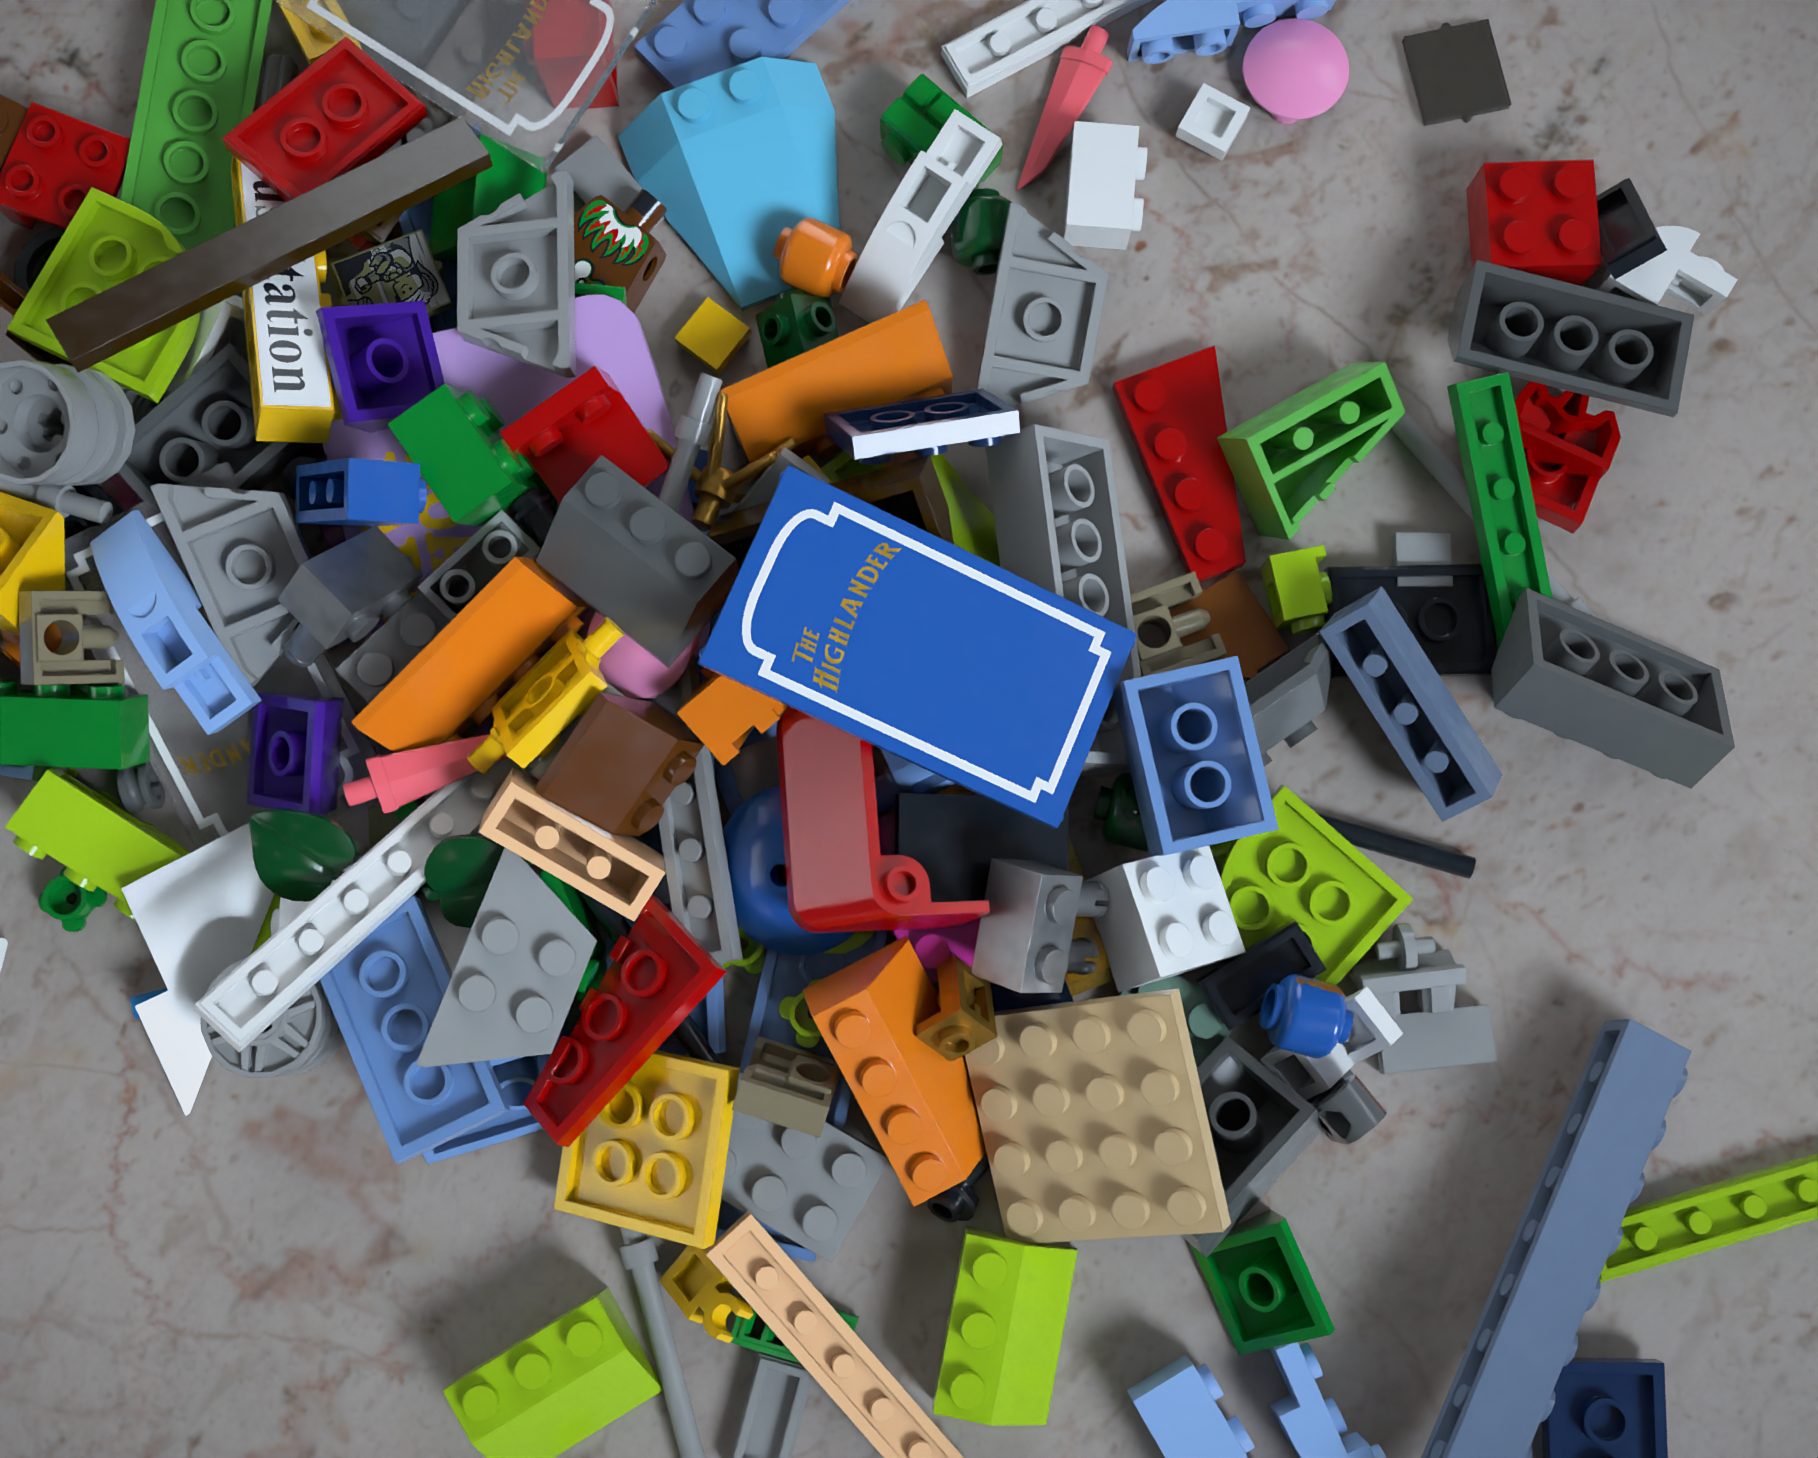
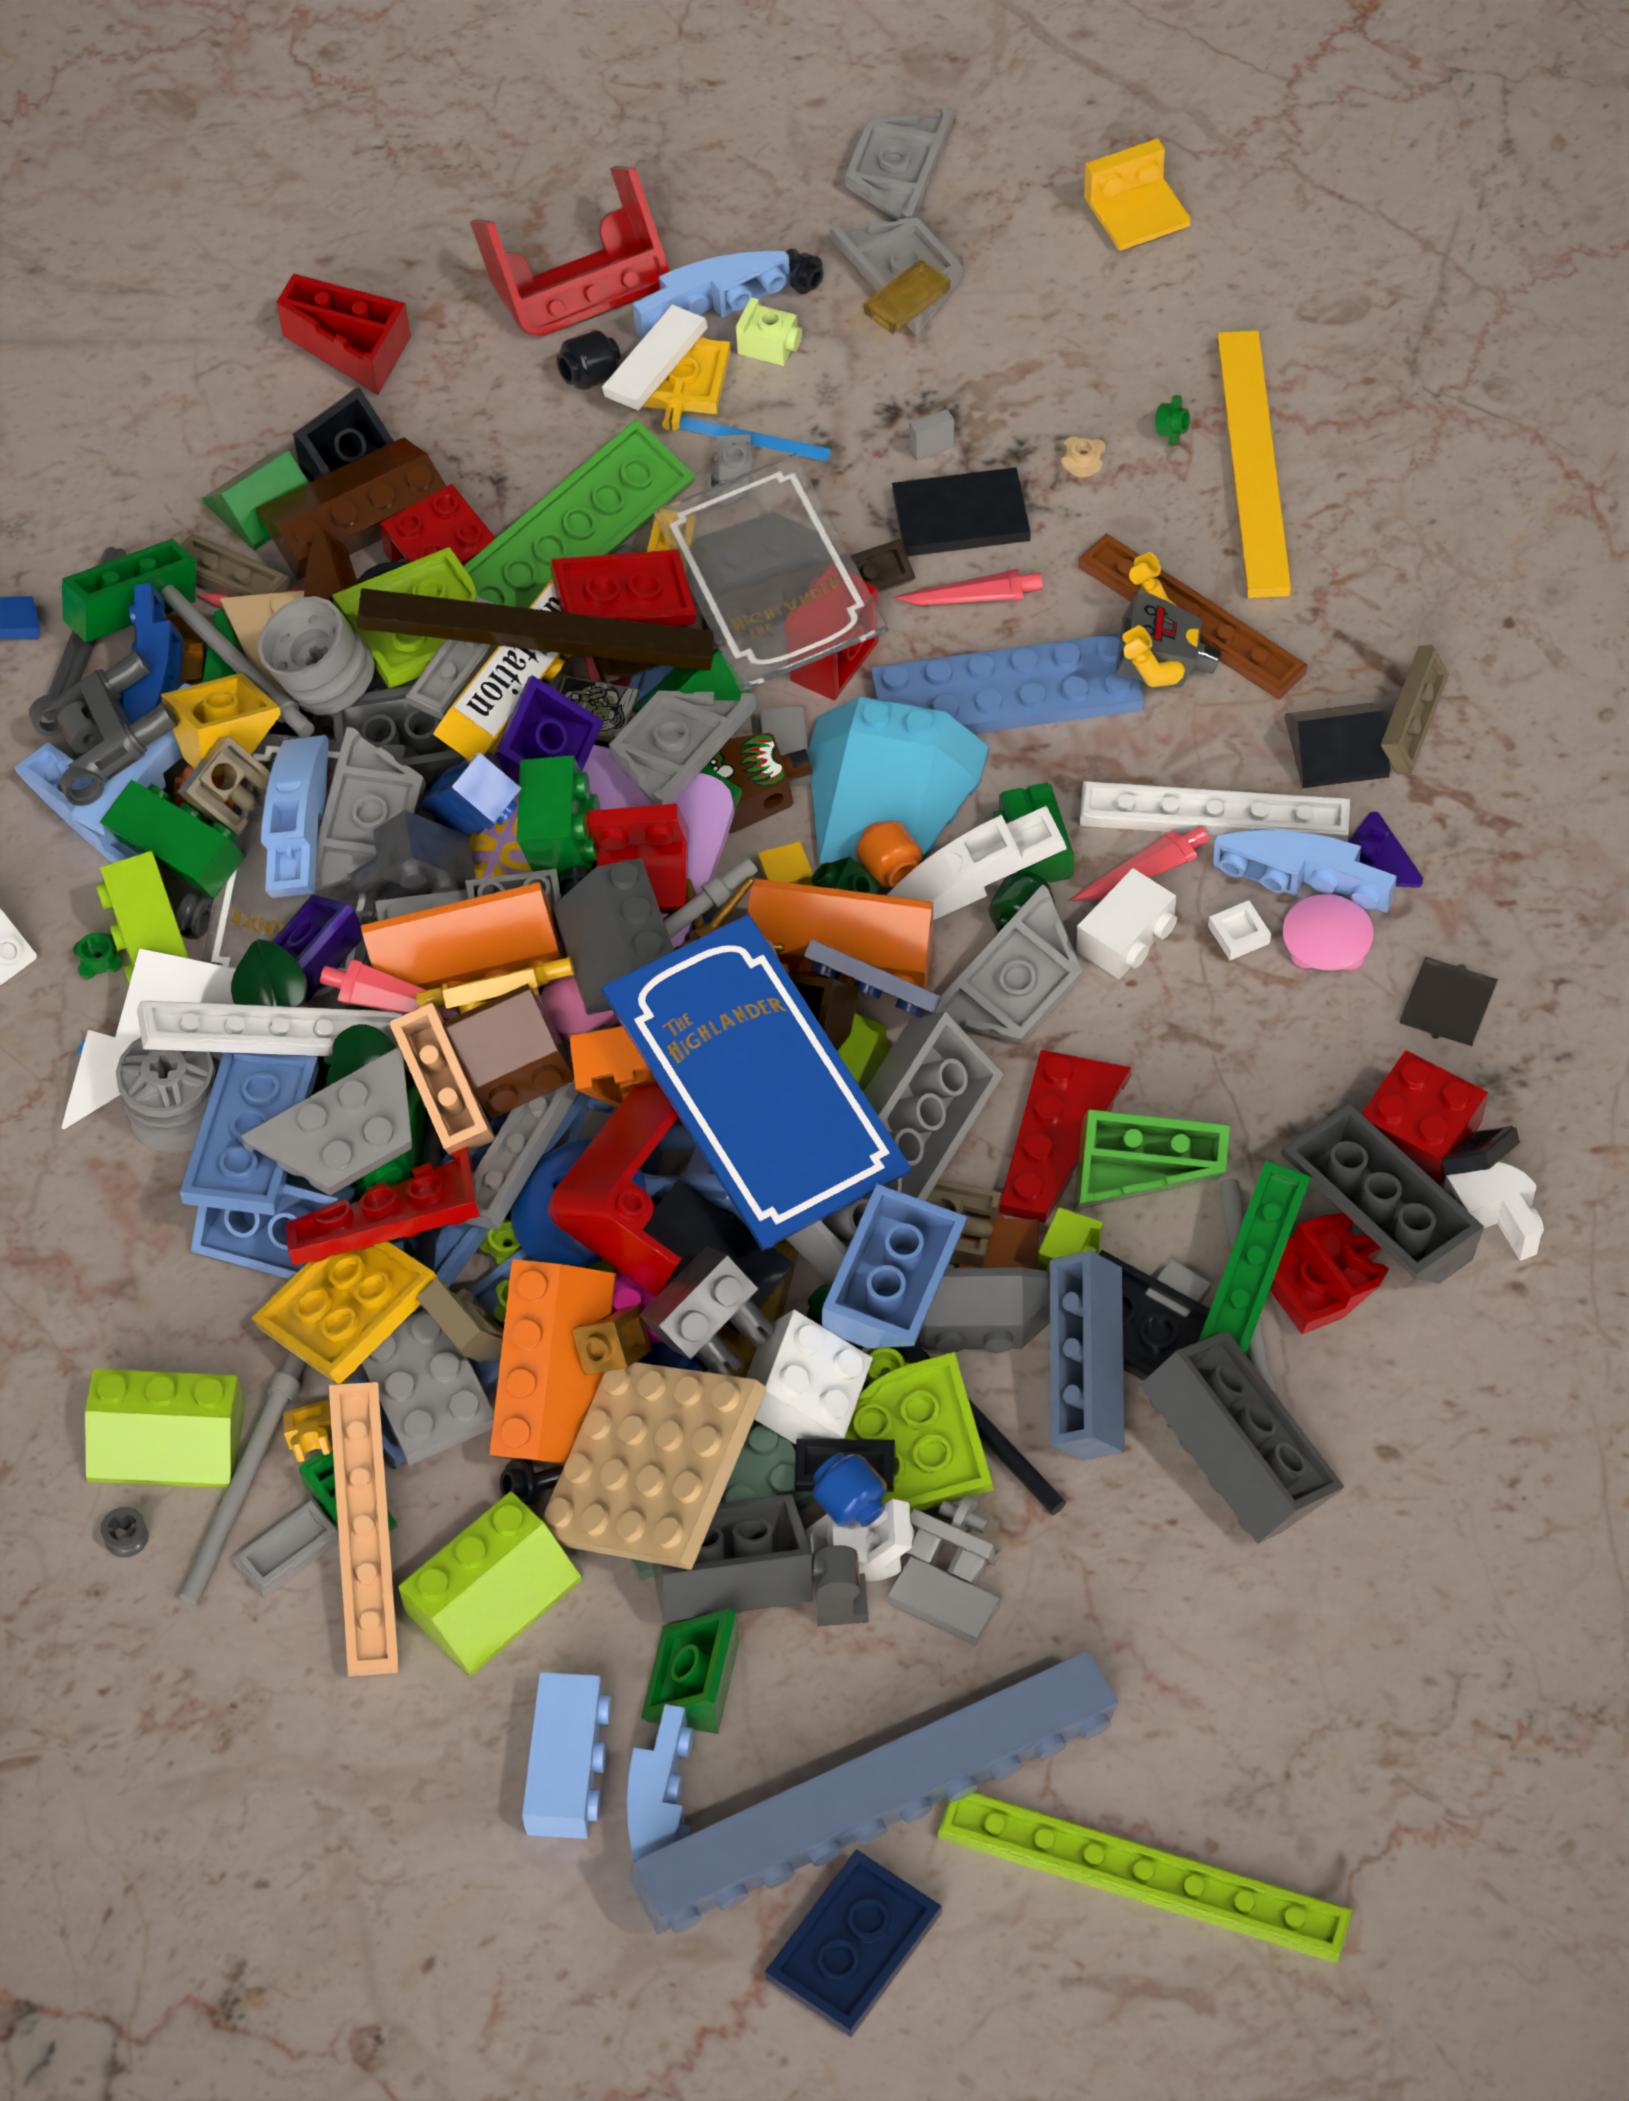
camera: 35 degrees right, 25 degrees down
(214, 350) = (449, 674): none -> light grey tile

